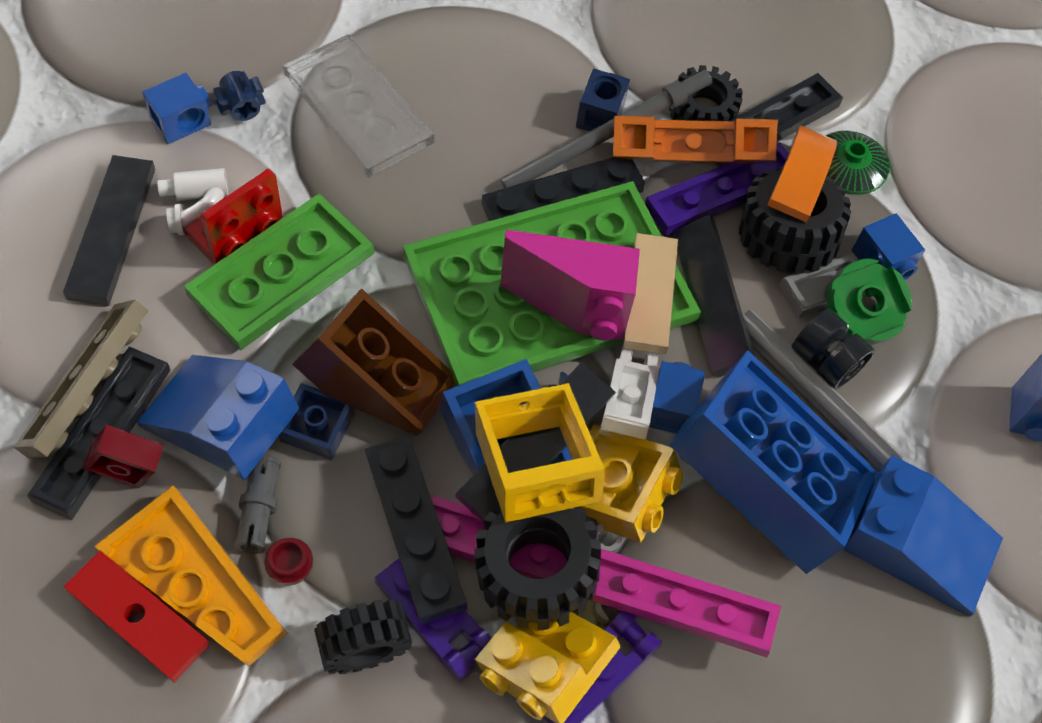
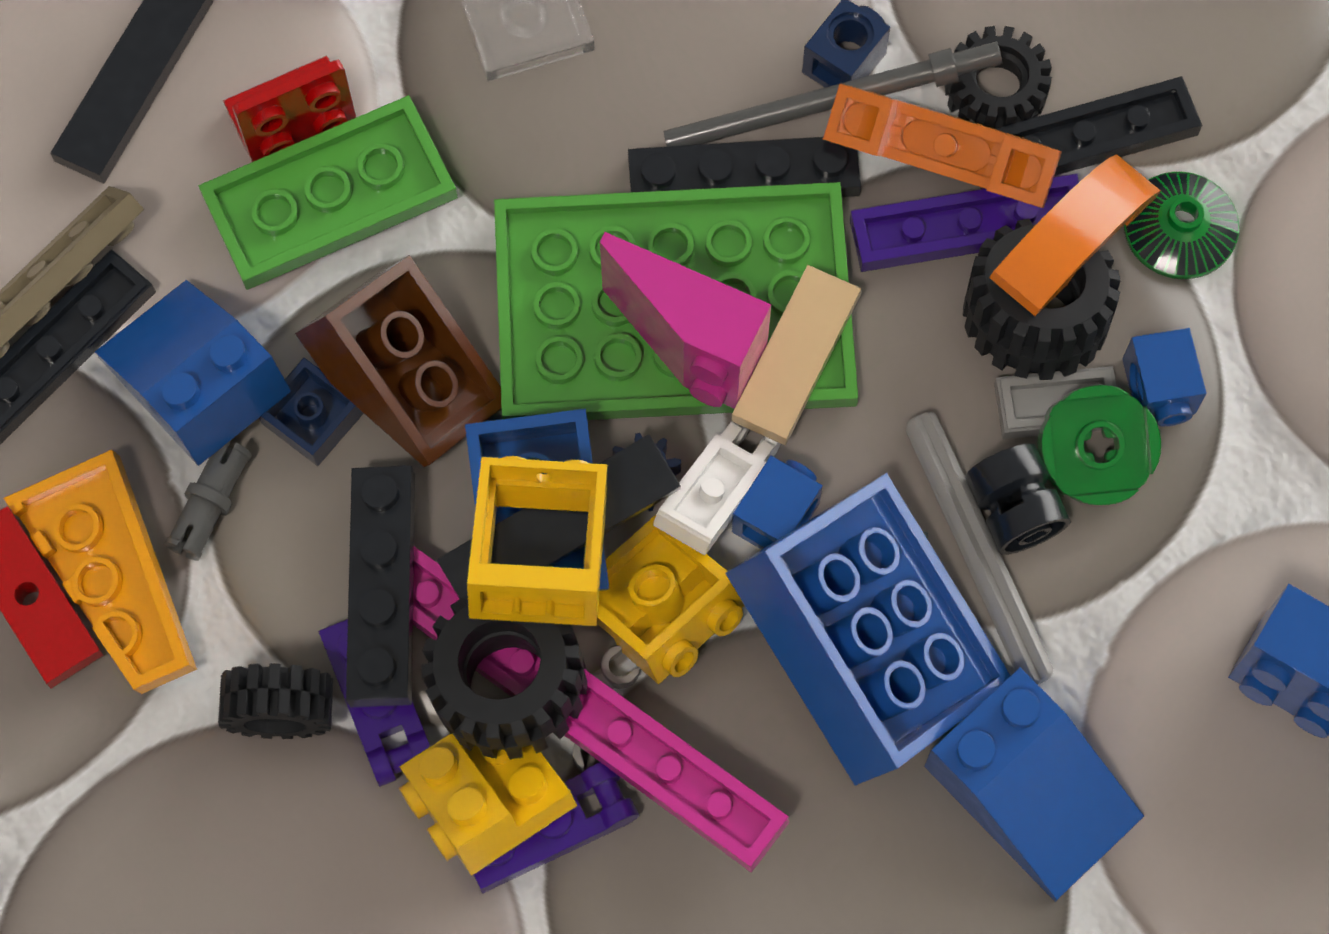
camera: 25 degrees right, 10 degrees up
(123, 456) = (62, 397): dark red piece -> none
(207, 185) = (254, 40): white plant -> none
(288, 561) = (224, 581): dark red plate -> none
(714, 292) = (889, 375): black tile -> none

